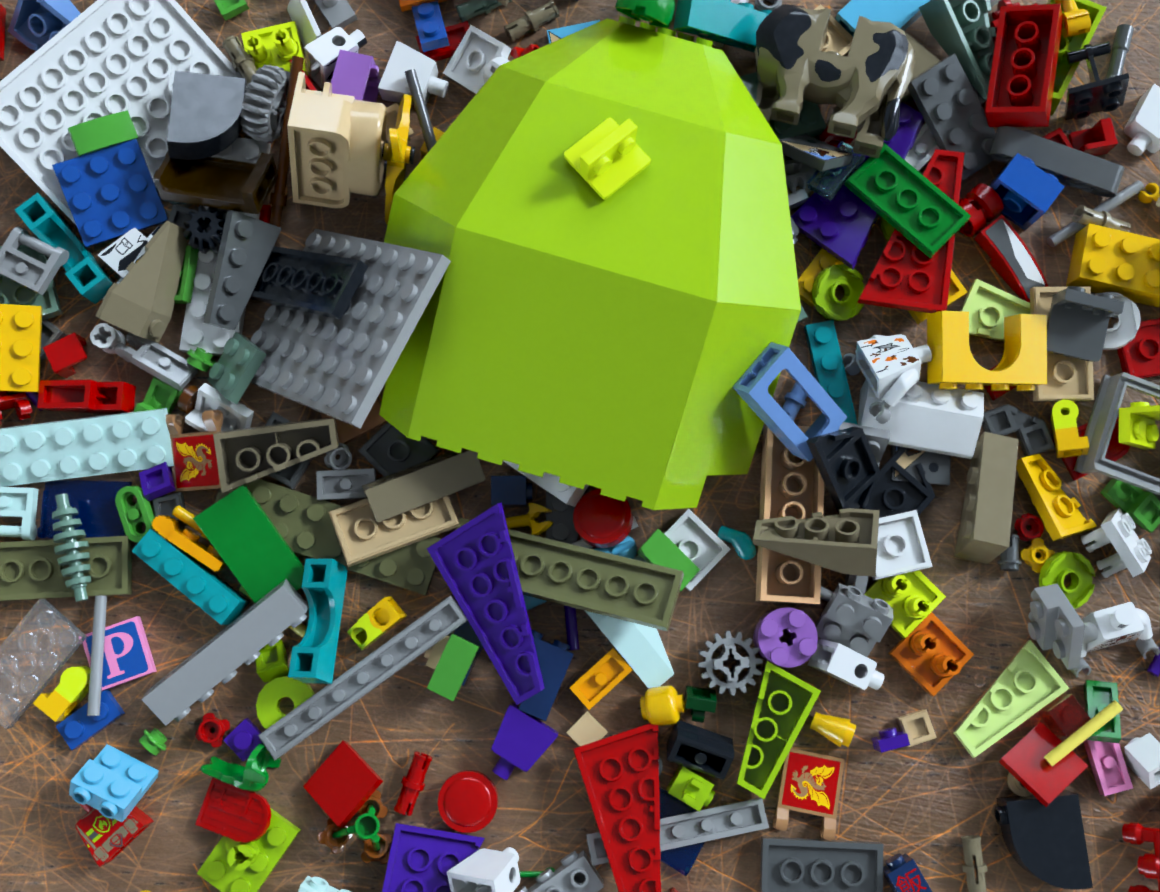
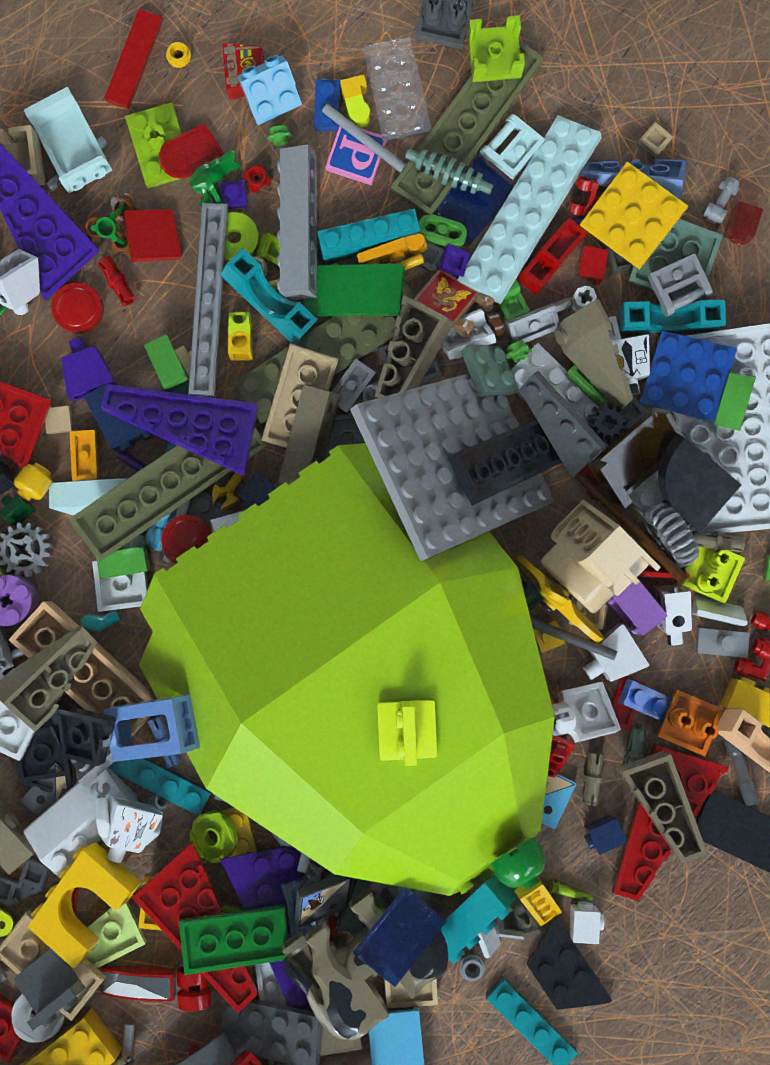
camera: 125 degrees right, 5 degrees up
(788, 56) = (399, 936): none -> clear blue piece
(1025, 191) = (176, 1034): blue brick -> none

